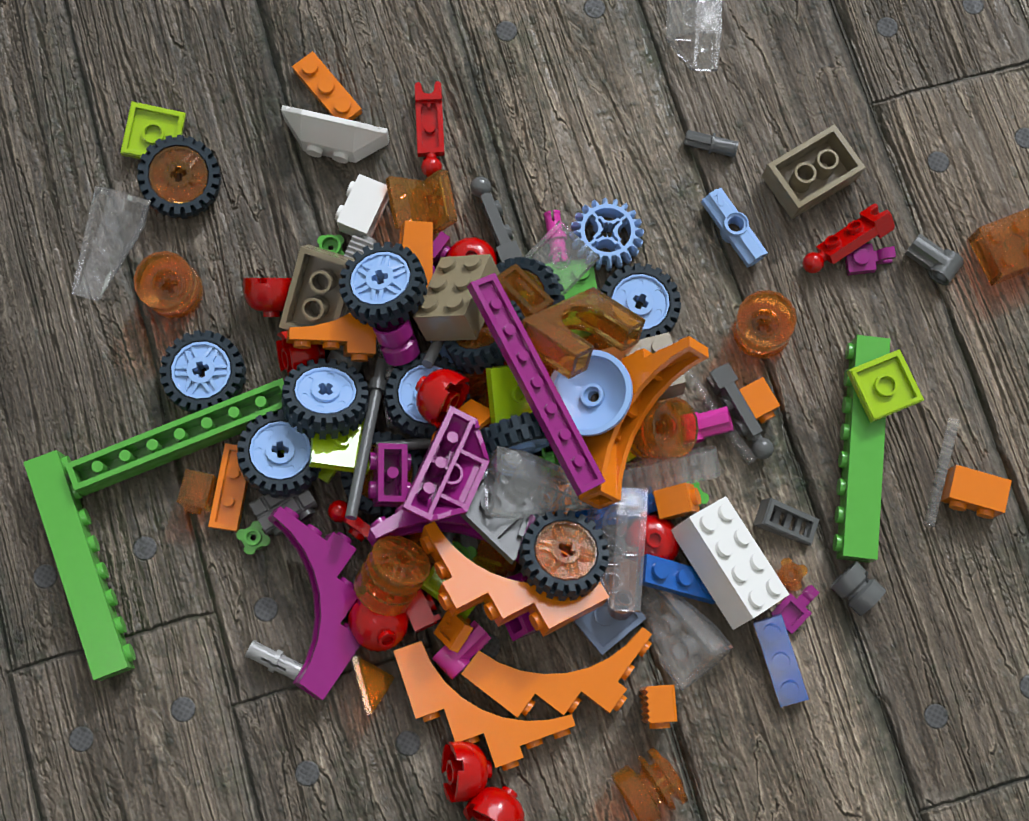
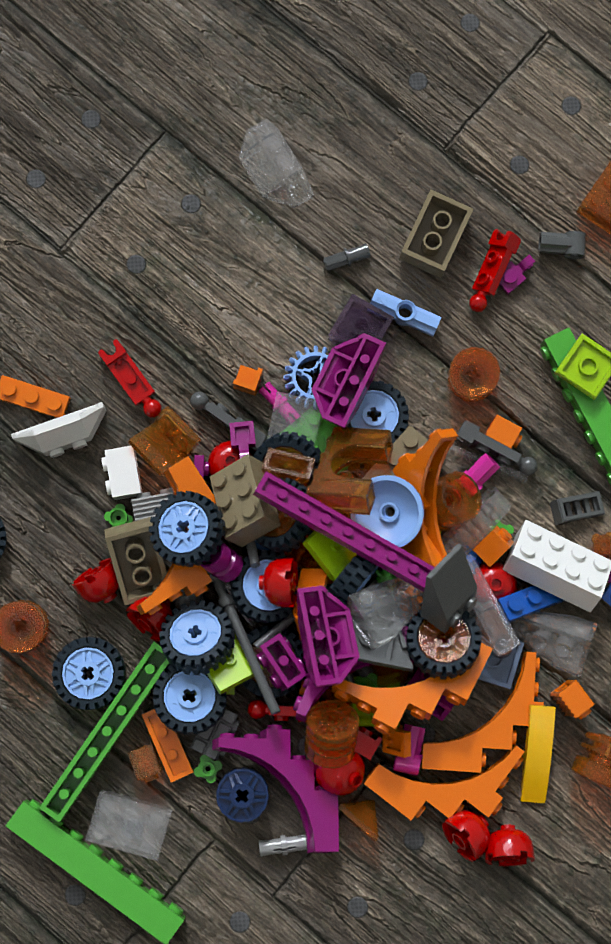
camera: 35 degrees left, 5 degrees up
(141, 541) = (129, 824): none -> clear brick
(281, 592) = (243, 779): none -> dark blue wheel
(498, 239) = (242, 436): none -> magenta plate
(540, 197) = (248, 380): none -> orange panel
(587, 738) = (537, 753): none -> yellow slope
(600, 502) = (449, 591): none -> dark grey slope
(636, 247) = (347, 378): none -> magenta wedge
(680, 214) = (360, 318): none -> clear purple brick

